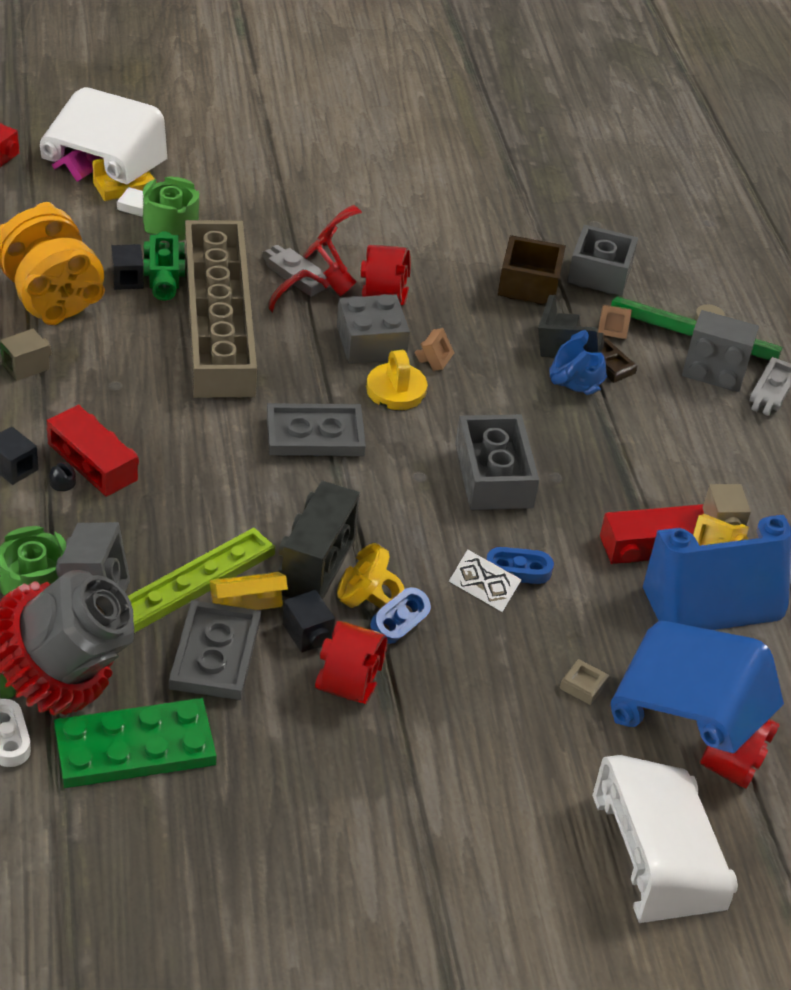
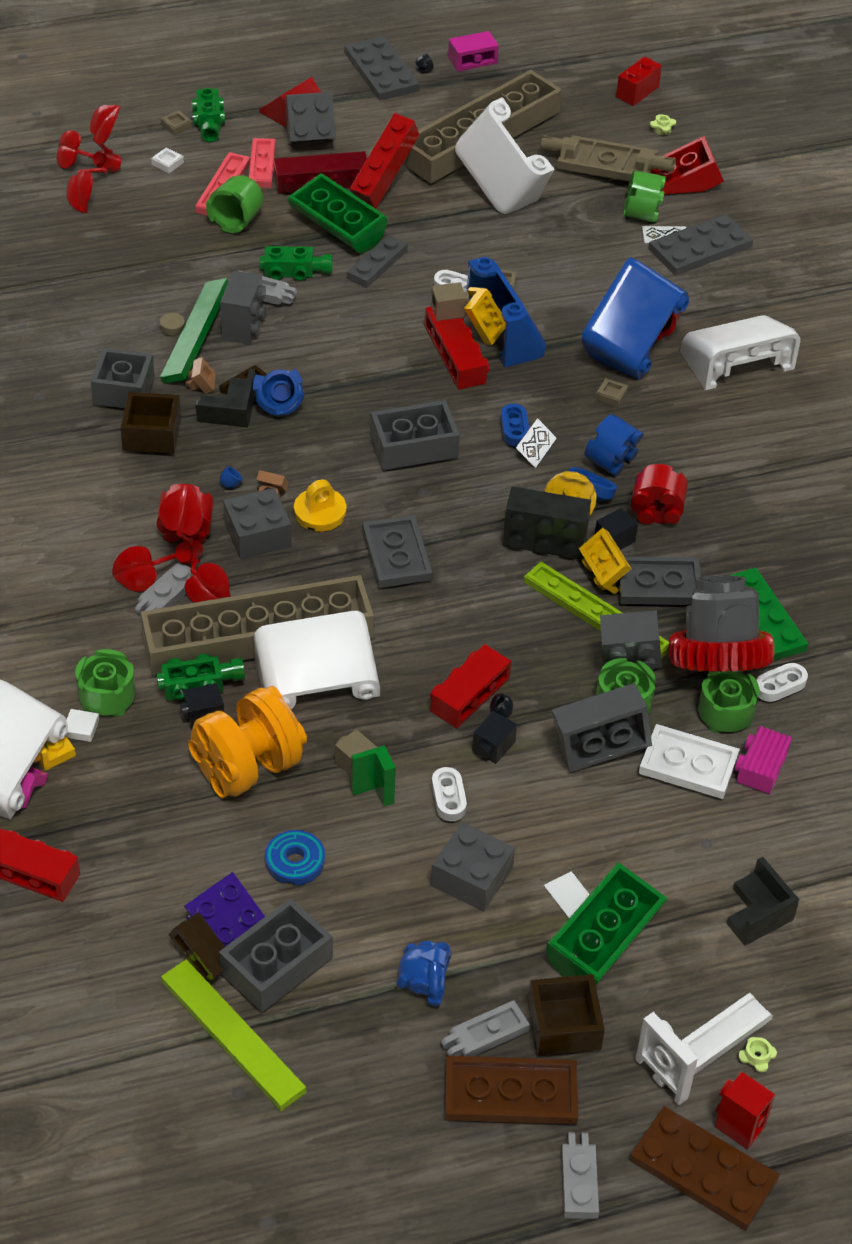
camera: 95 degrees left, 5 degrees up
(151, 340) = (317, 656): none -> white windscreen
(449, 318) = (230, 478): none -> blue hinge
(457, 638) = (613, 444): none -> blue brick

